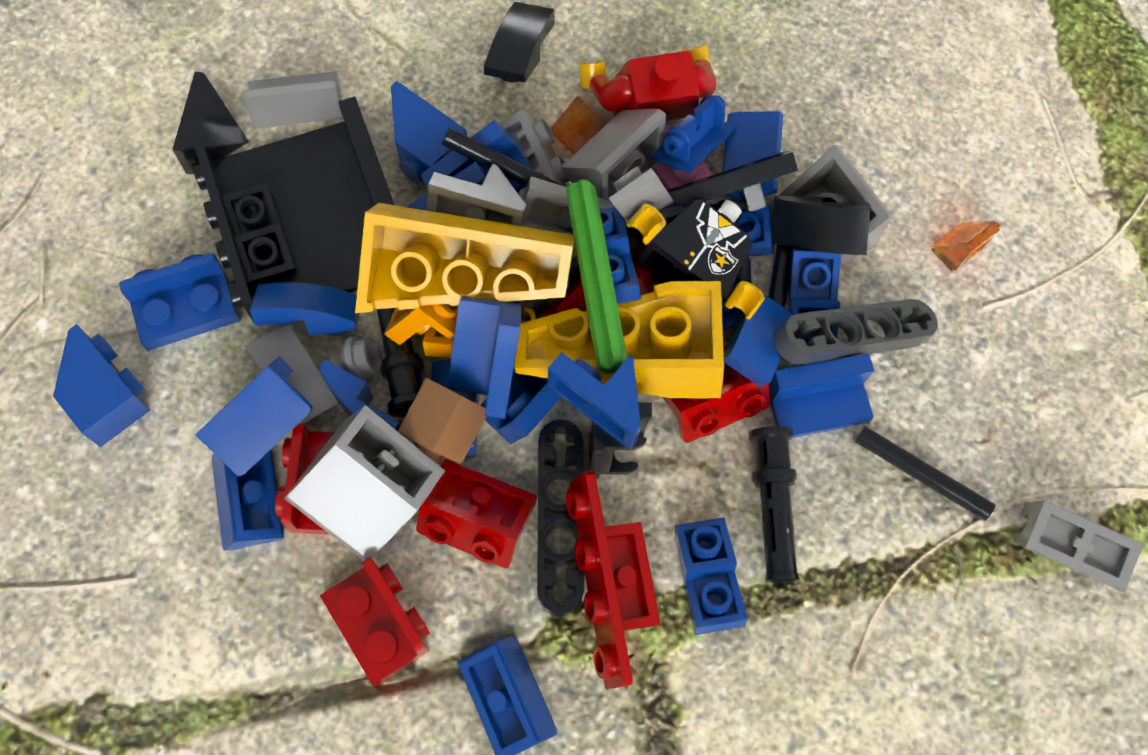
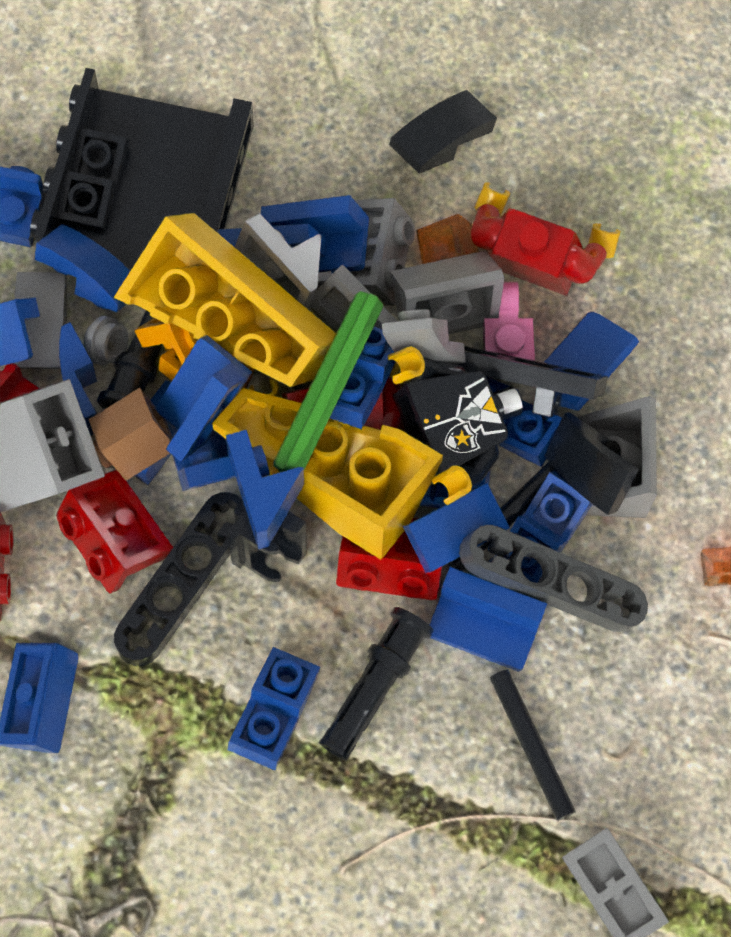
camera: 35 degrees right, 0 degrees up
(206, 120) = (112, 53): black slope -> none
(293, 99) = (203, 71): light grey panel -> none
(418, 132) = (290, 166): blue slope -> none
(487, 156) = (331, 236): black bar -> none
(616, 580) = (190, 656): red bracket -> none
(695, 136) = (530, 317): blue hinge -> none

